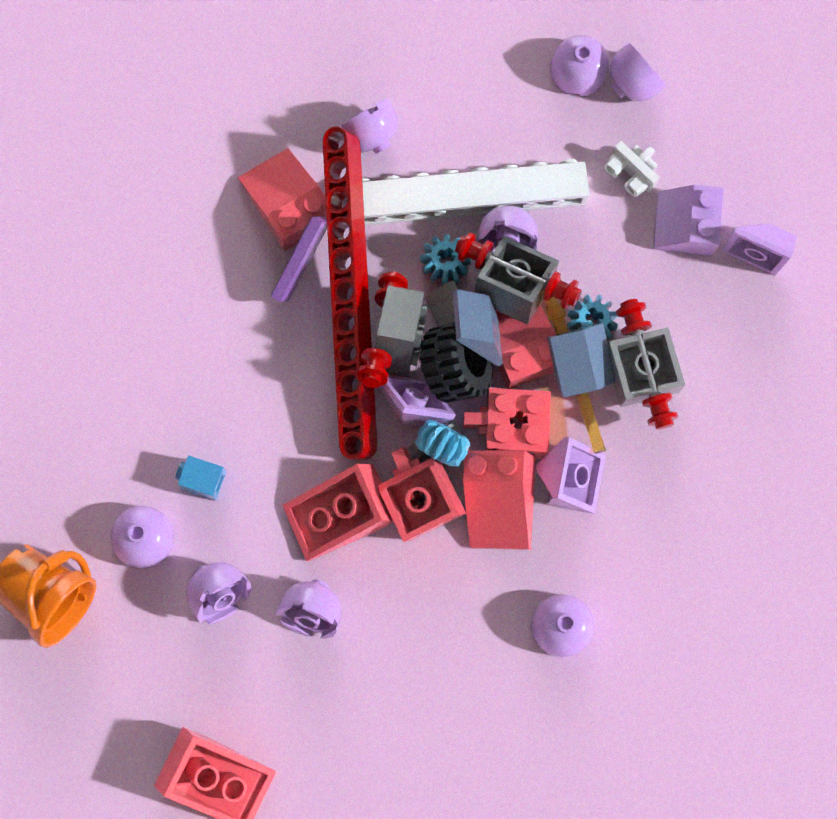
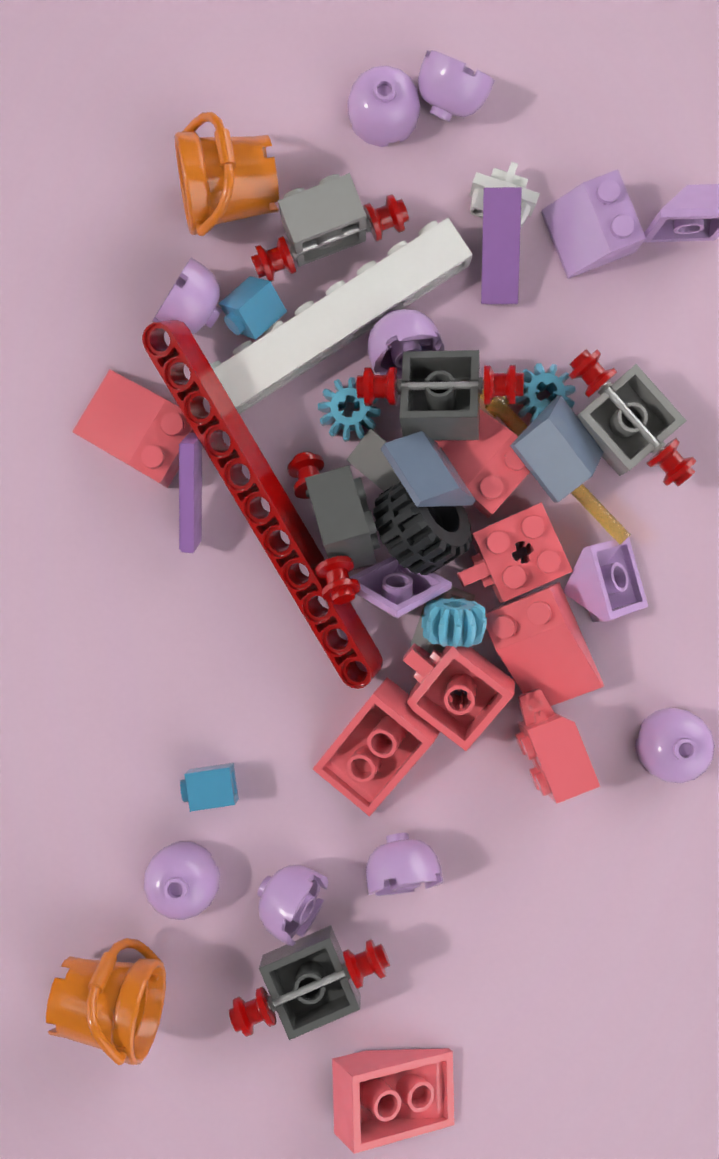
camera: 15 degrees left, 10 degrees up
(196, 656) = (308, 984): none -> dark grey brick
(412, 154) = (252, 307): none -> dark azure brick
(440, 55) = (224, 175): none -> orange piece
(470, 574) = (555, 748): none -> coral hinge
(494, 122) = (324, 223): none -> light grey brick
(613, 200) = (501, 245): none -> medium lavender tile

